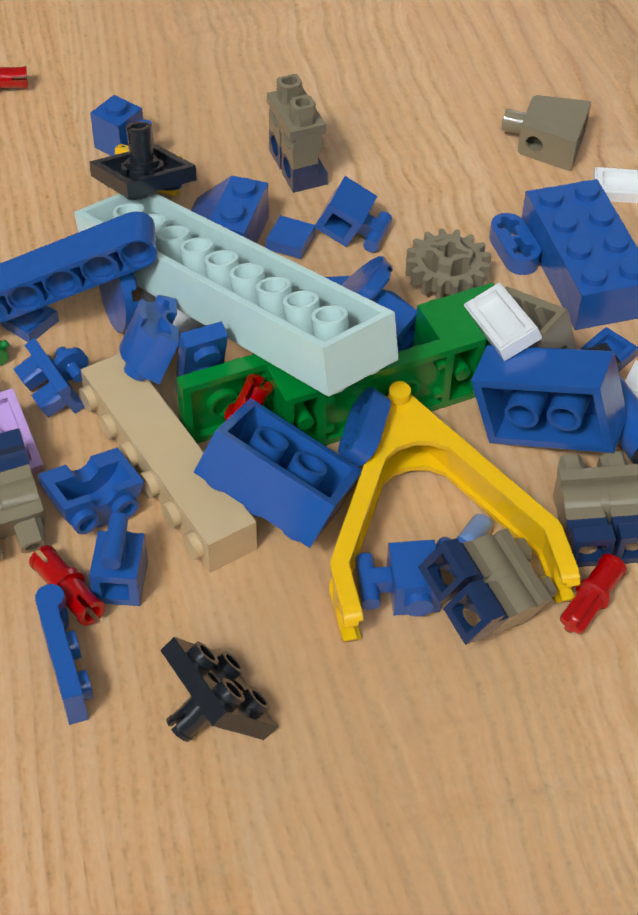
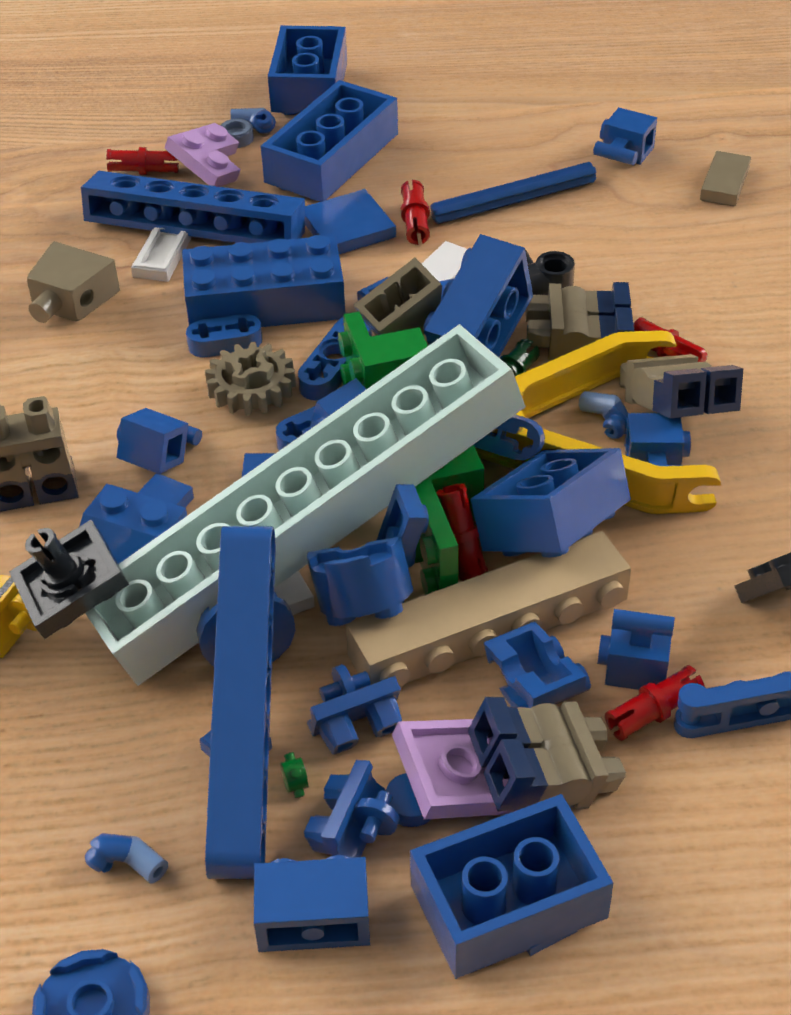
camera: 80 degrees left, 5 degrees down
(370, 278) = (295, 411): blue tile -> none
(503, 321) = (408, 306): white tile -> none
(522, 459) = (519, 359): none -> dark green pin

